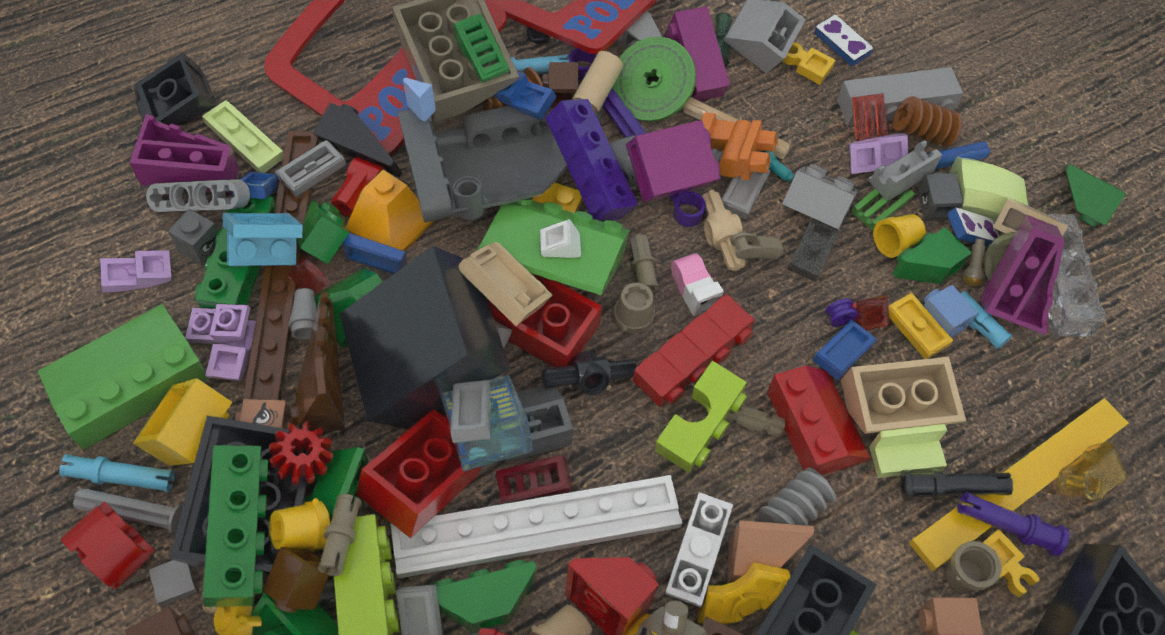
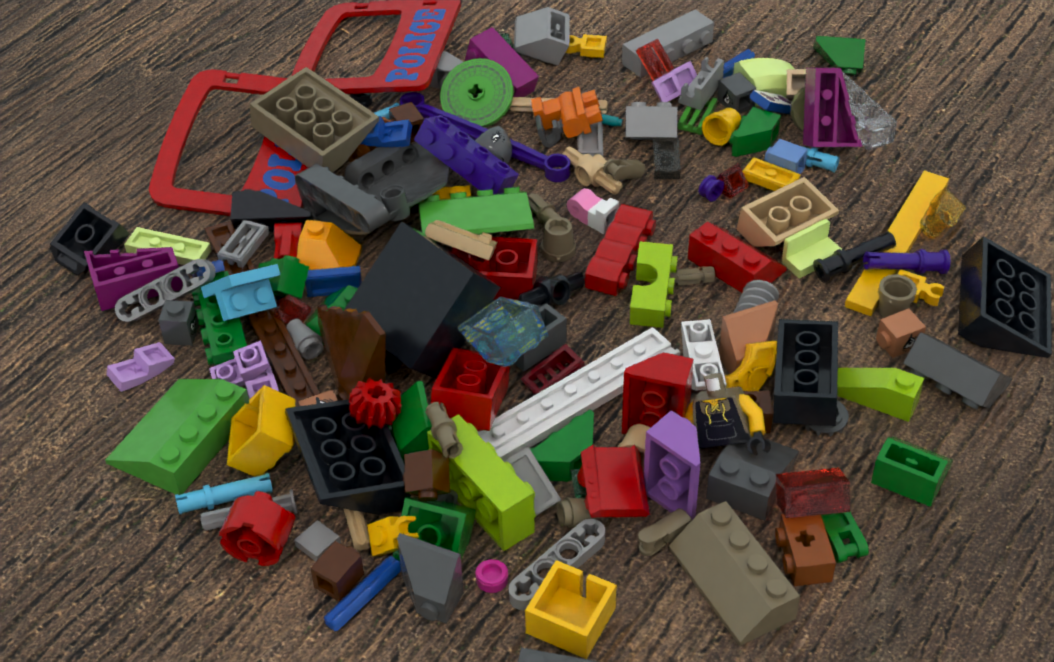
camera: 20 degrees left, 15 degrees down
(232, 526) = (358, 460): green brick -> none
(300, 526) = (405, 440): yellow piece -> none
(419, 98) = (311, 155): light blue slope -> none
(471, 31) = (328, 94): green slope -> none
(471, 411) = (492, 318): light grey tile -> none
(560, 240) = (481, 205): white slope -> none
(599, 79) = (437, 100): tan brick -> none
(673, 160) = (530, 133): magenta brick -> none
(843, 40) = (603, 24): tile -> none
(844, 349) = (727, 209): blue tile -> none
(927, 121) = (696, 47): dark orange piece -> none
(974, 273) = (790, 131): dark tan piece -> none

